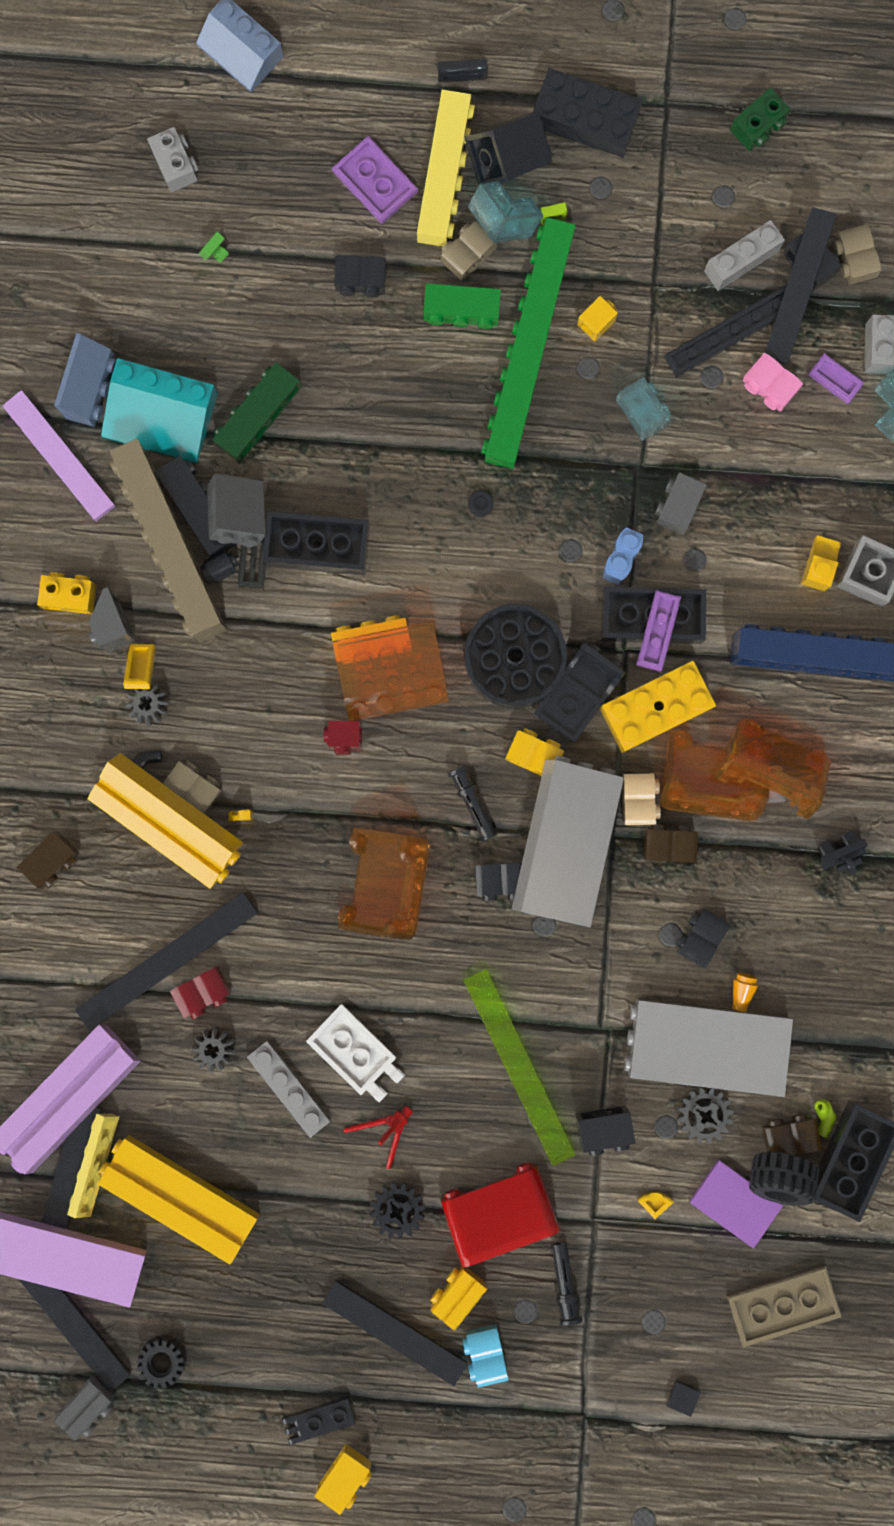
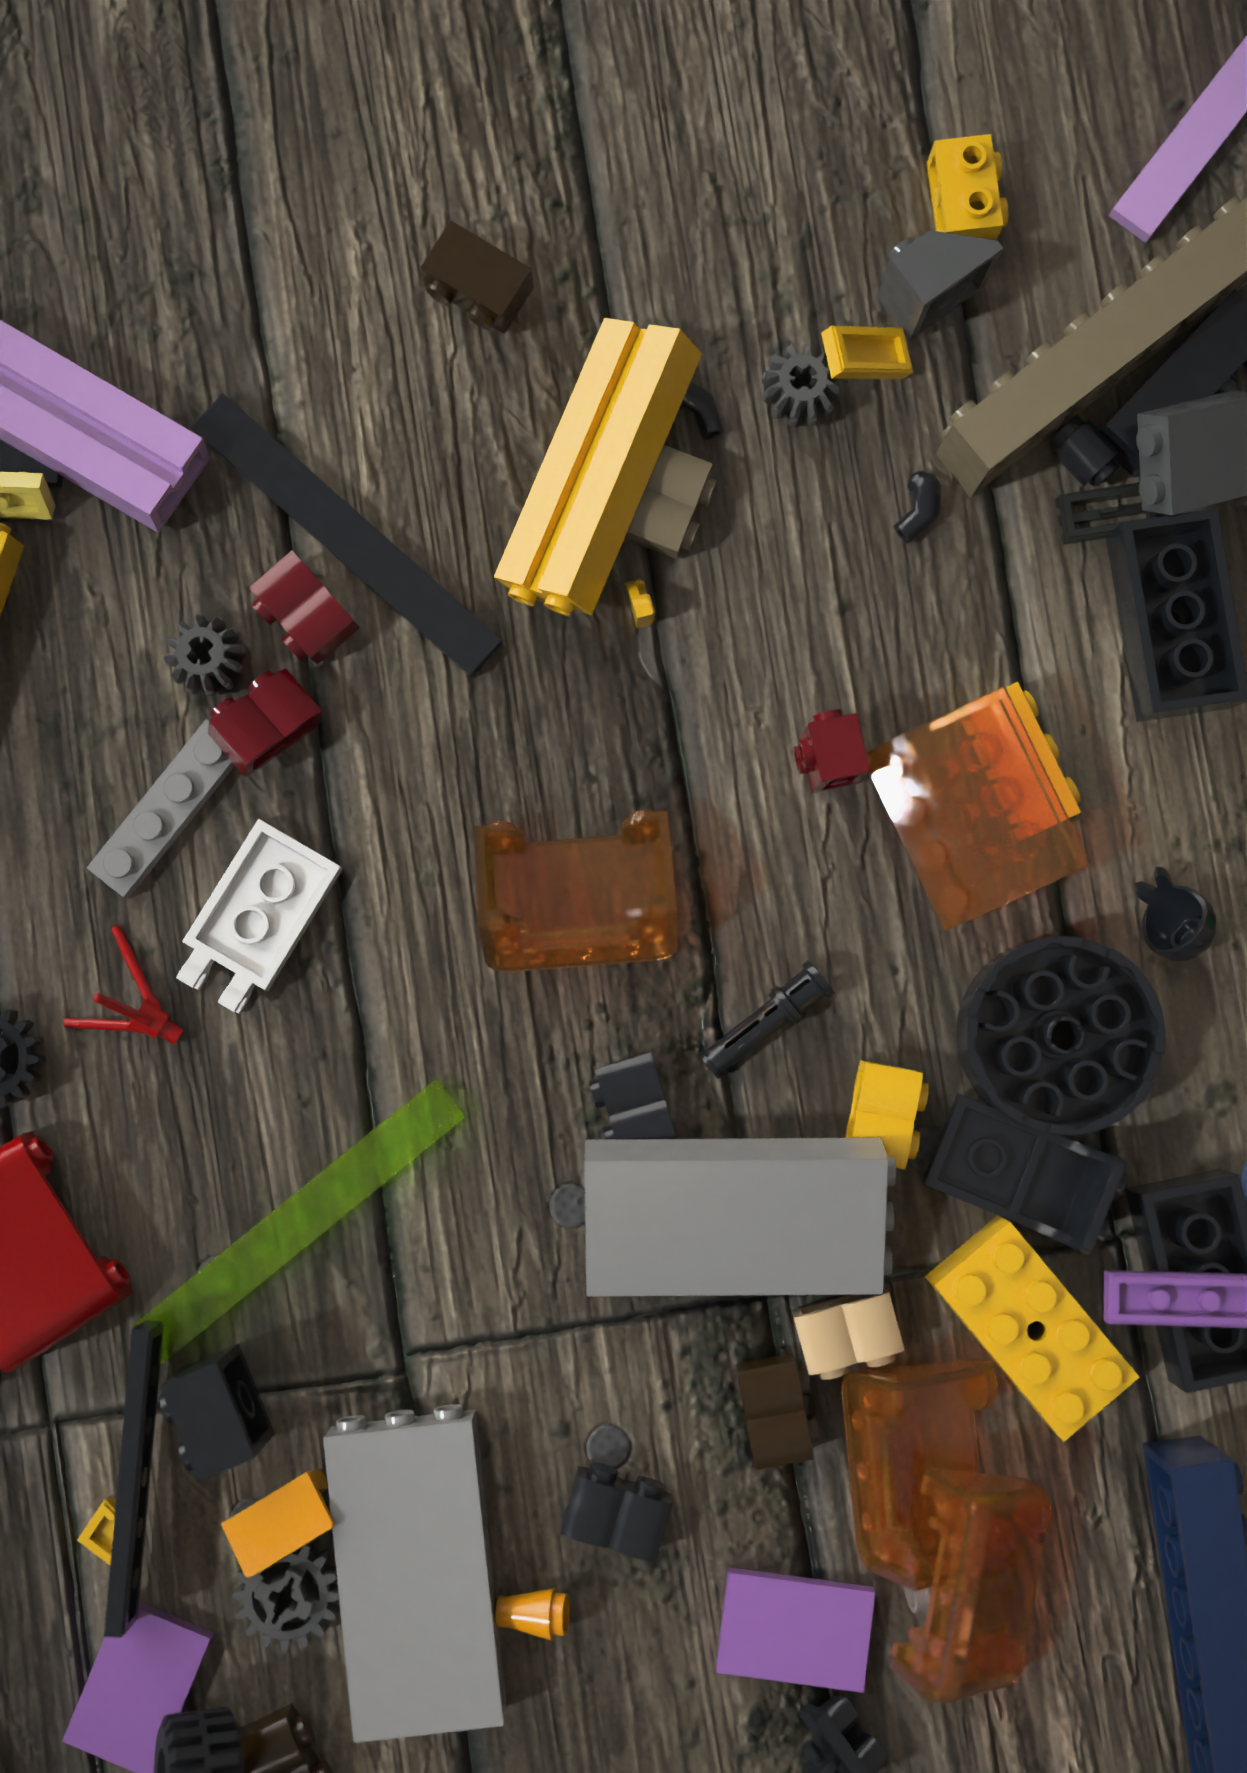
camera: 75 degrees right, 0 degrees up
(227, 655) = (926, 506): none -> black arm
(255, 1026) = (263, 721): none -> dark red brick
(470, 581) = (1177, 918): none -> black piece
(627, 1179) = (134, 1478): none -> black tile
(668, 1110) = (279, 1523): none -> light orange panel
(781, 861) = (795, 1629): none -> medium lavender tile

